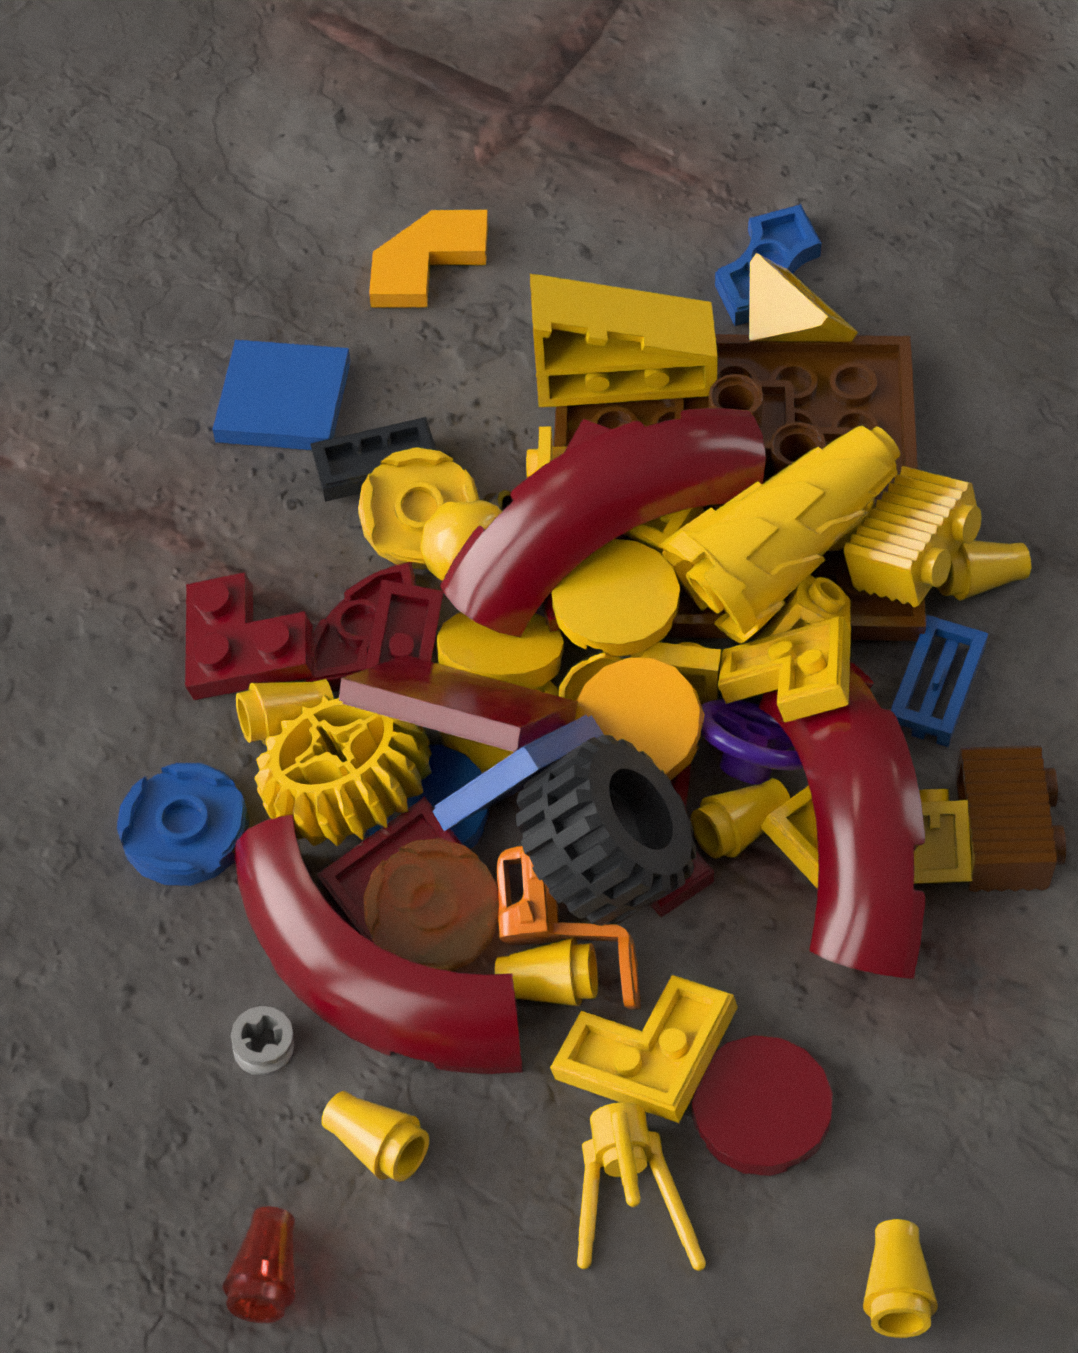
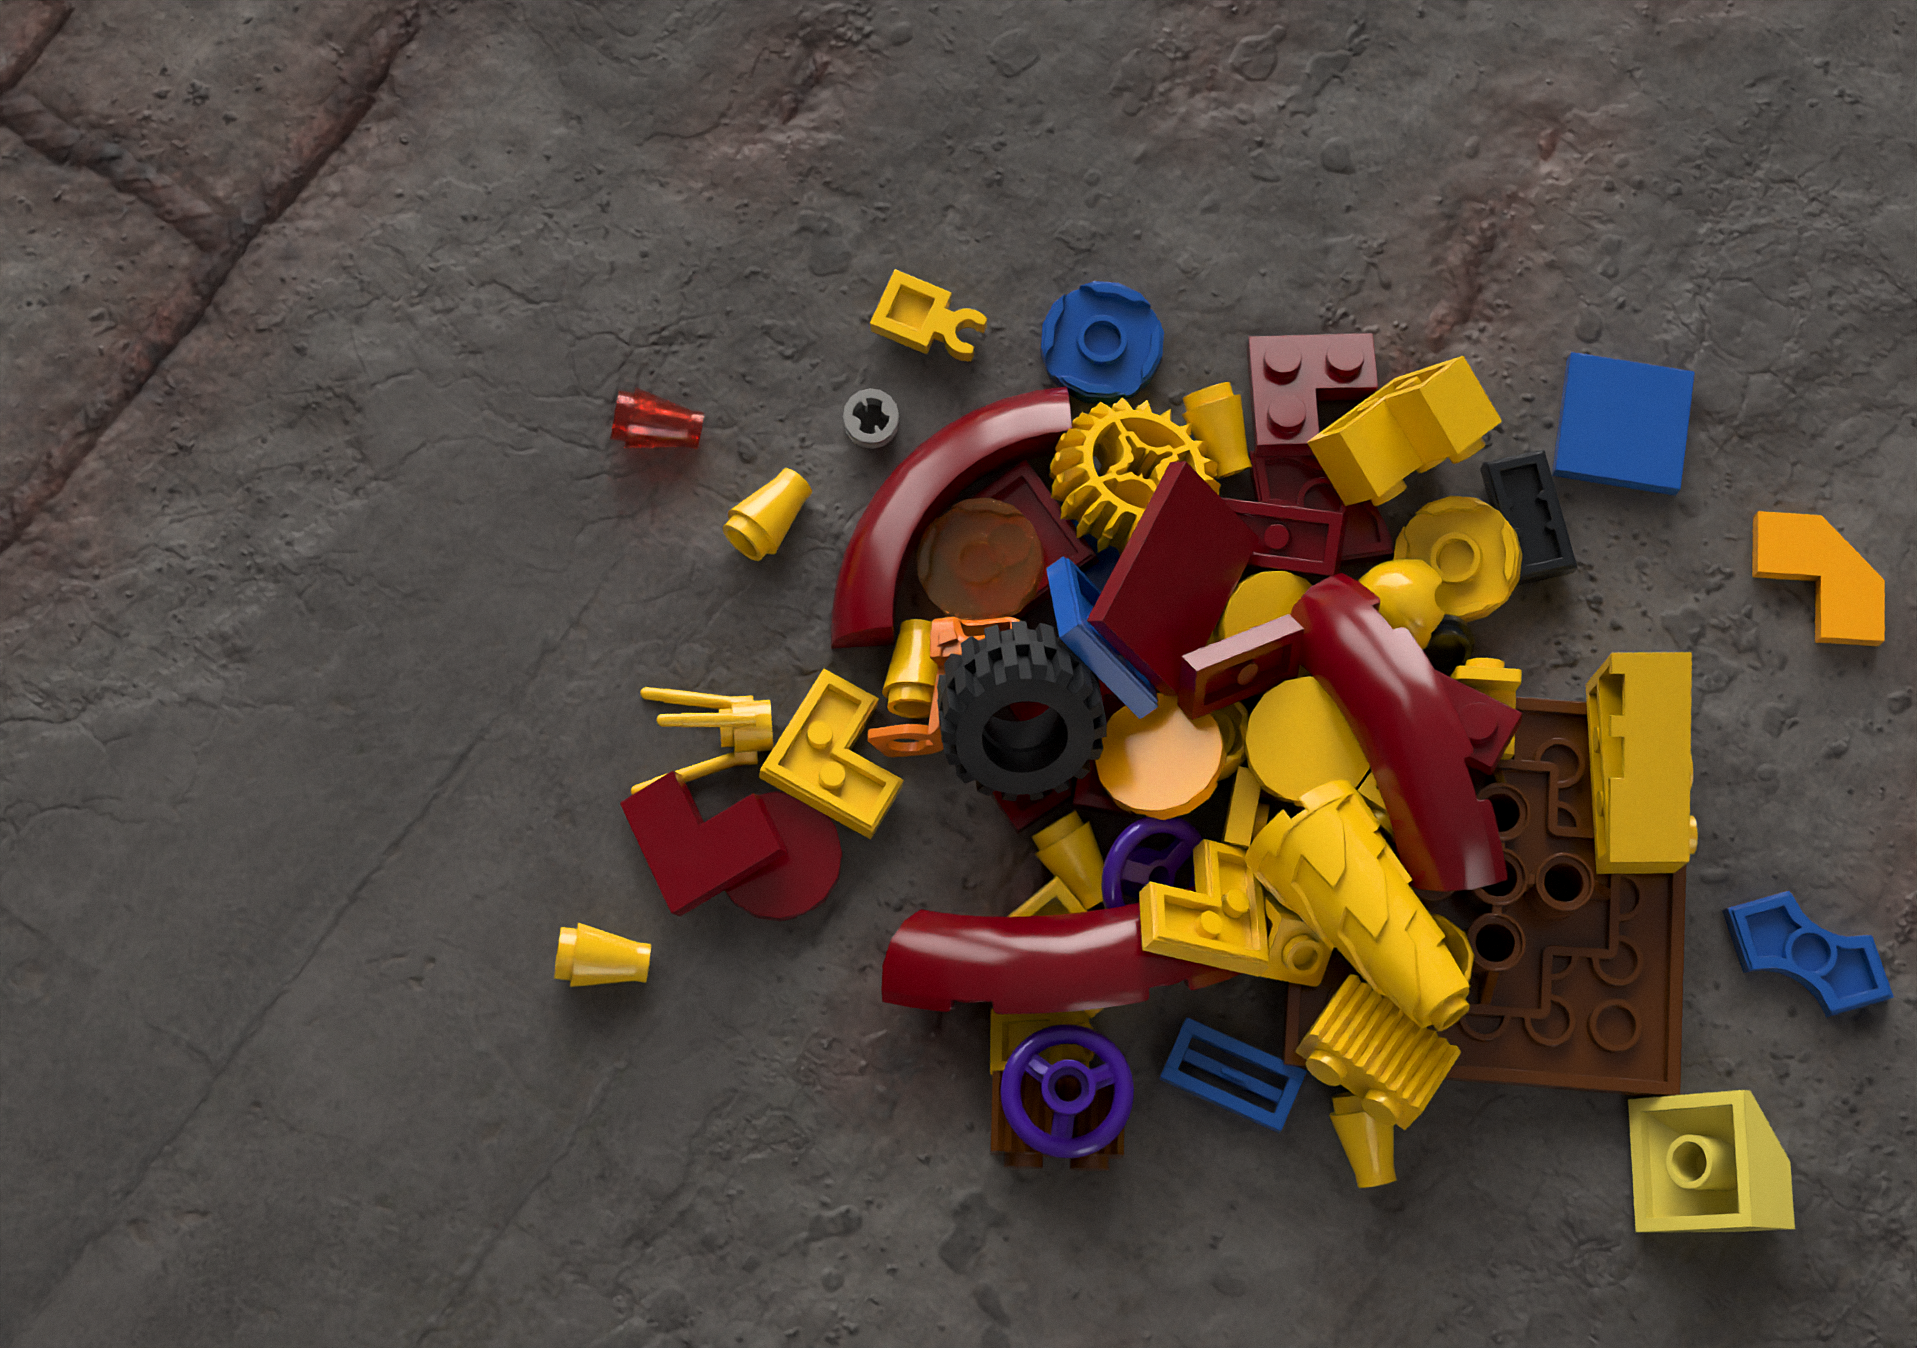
camera: 90 degrees right, 20 degrees up
(149, 993) = (919, 313): none -> yellow plate
(288, 530) = (1404, 429): none -> yellow brick
(535, 639) = (1239, 666): none -> dark red plate
(778, 1179) = (697, 857): none -> dark red tile
(788, 310) = (1717, 963): yellow slope -> none
(970, 320) = (1707, 1165): none -> light yellow slope
(995, 757) = (1114, 1071): none -> dark purple piece

